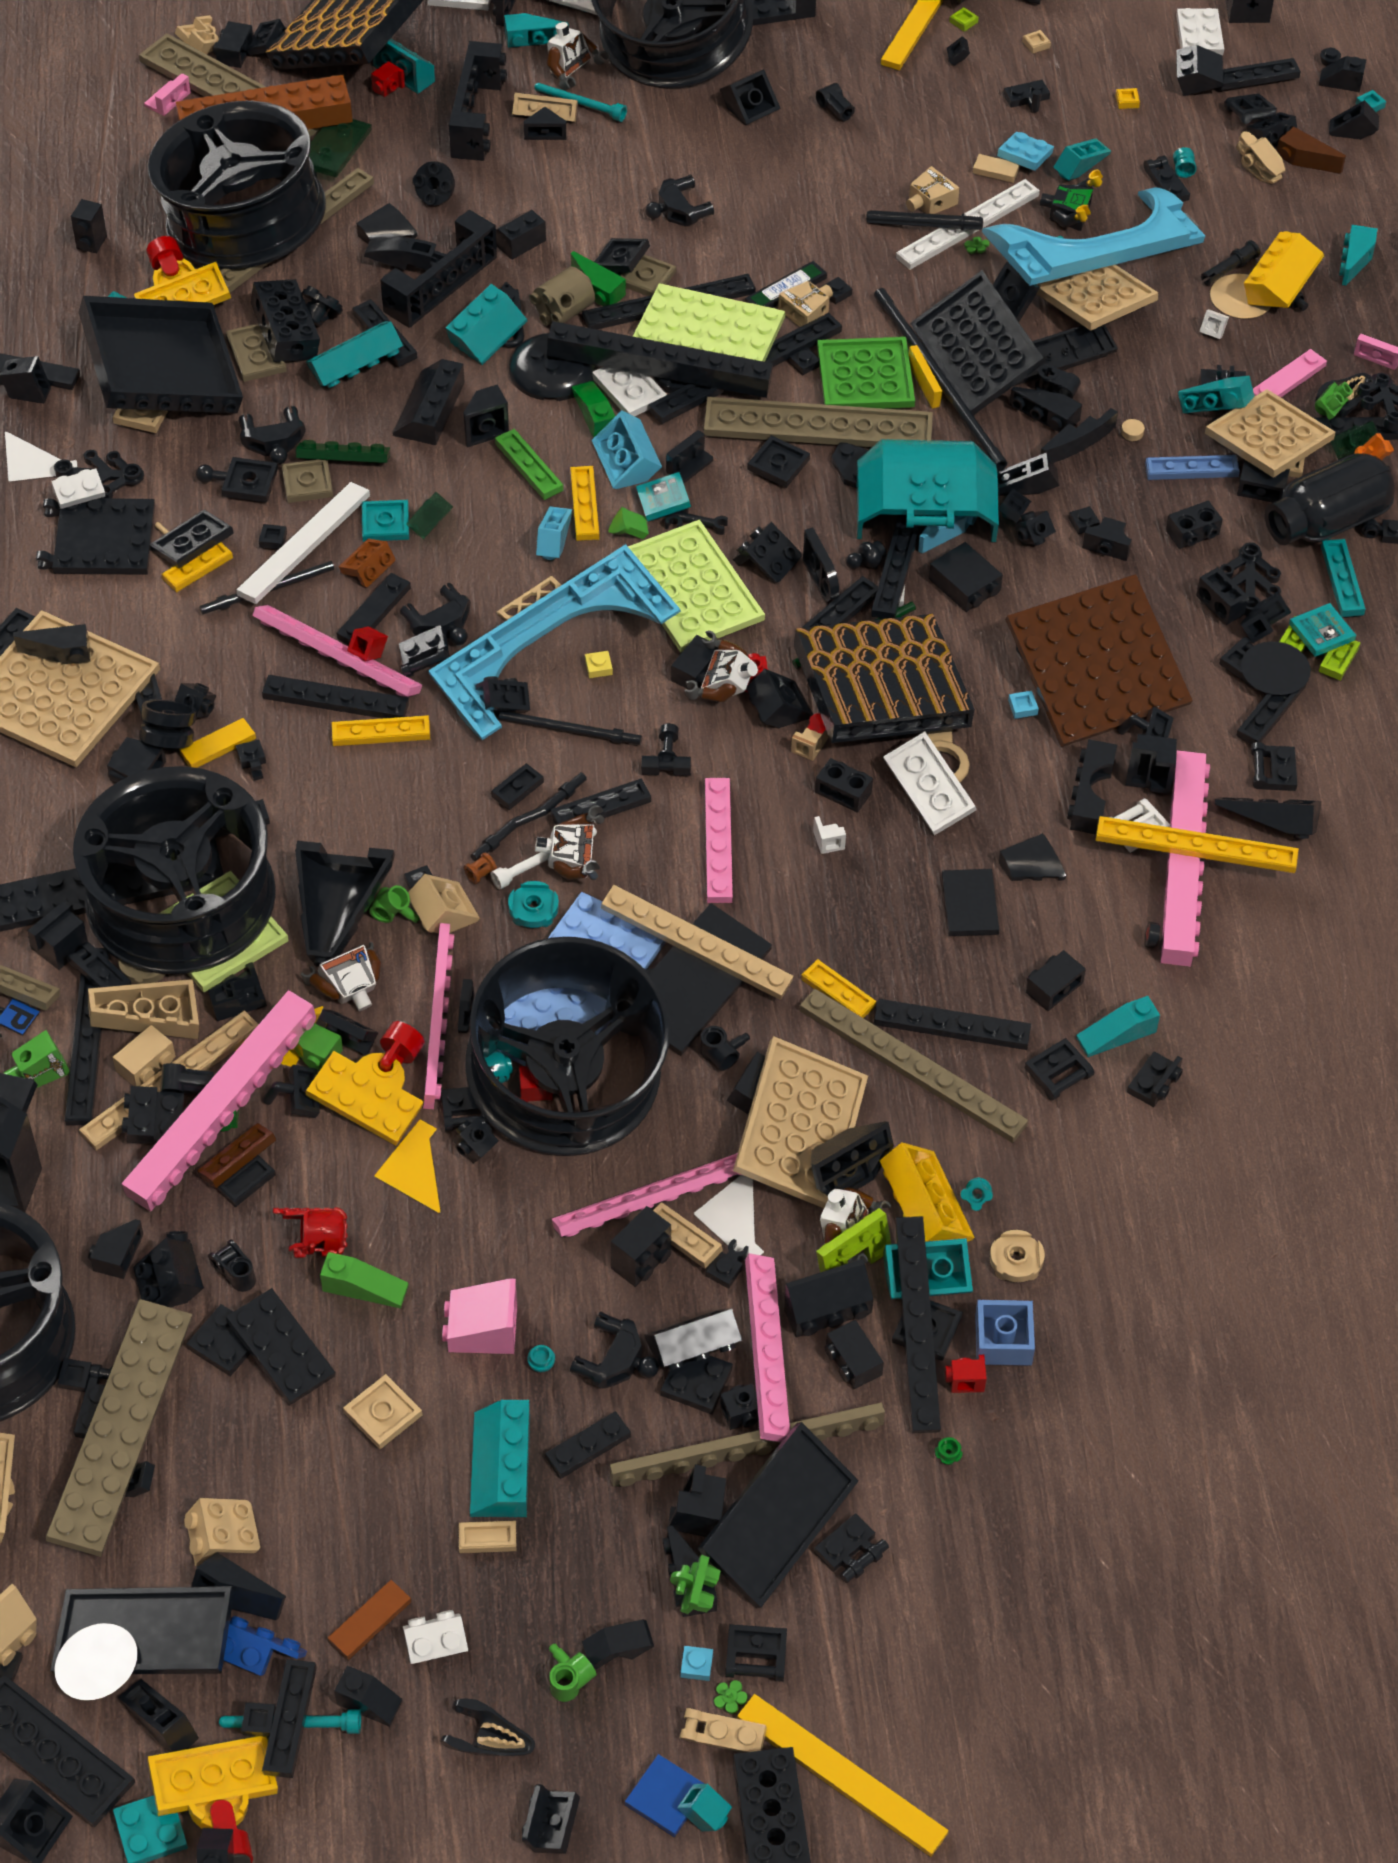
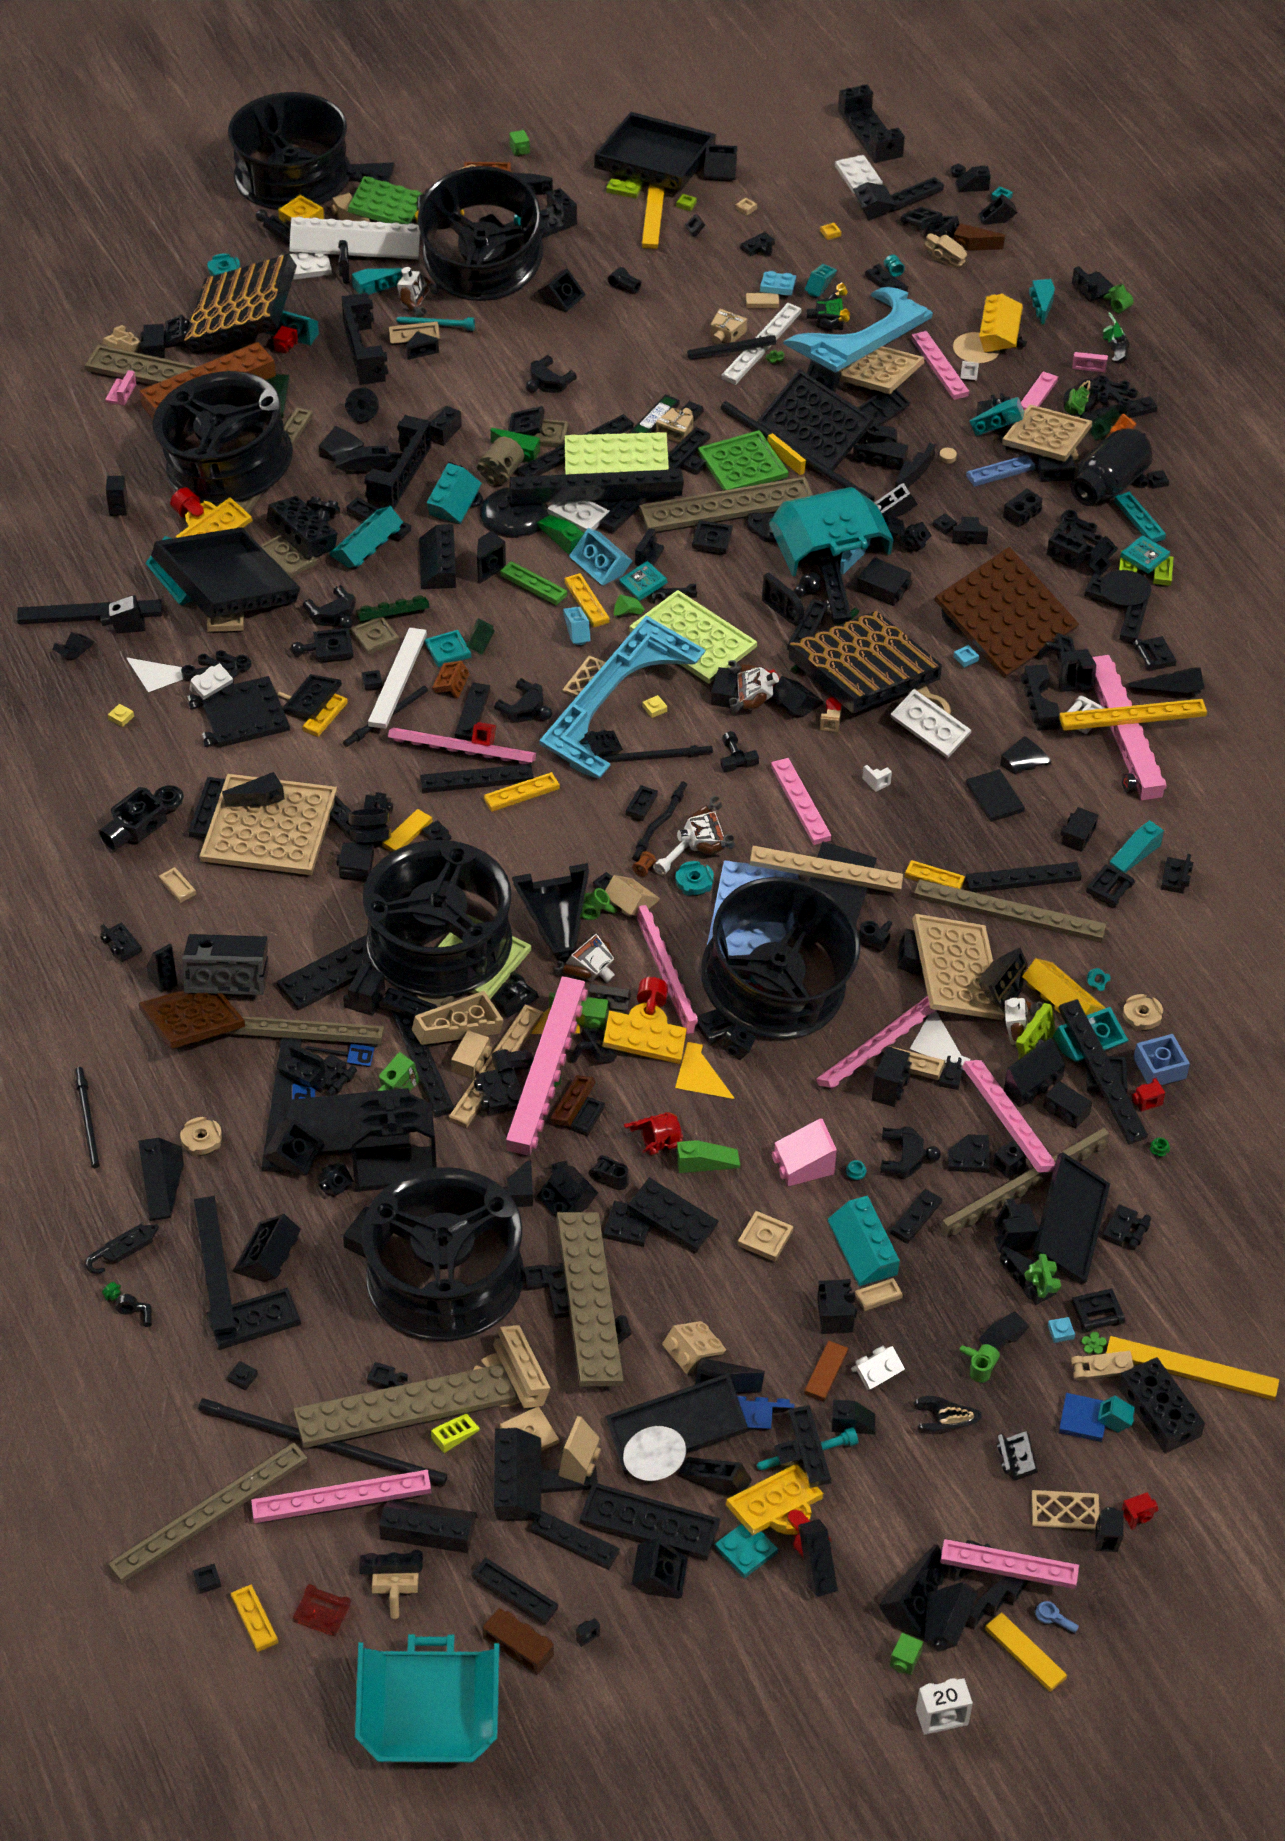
camera: 20 degrees left, 5 degrees down
(416, 1537) = (834, 1306): none -> black piece
(423, 650) = (525, 725): black plate -> none
(465, 1006) = (682, 956): black tile -> none
(611, 801) = (722, 788): black plate -> none
(694, 1338) = (957, 1124): slope -> none
(769, 551) = (738, 598): black bracket -> none
(844, 785) = (870, 741): black brick -> none
(1181, 308) = (940, 365): none -> bright pink plate
(1237, 258) = (963, 322): black pin -> none

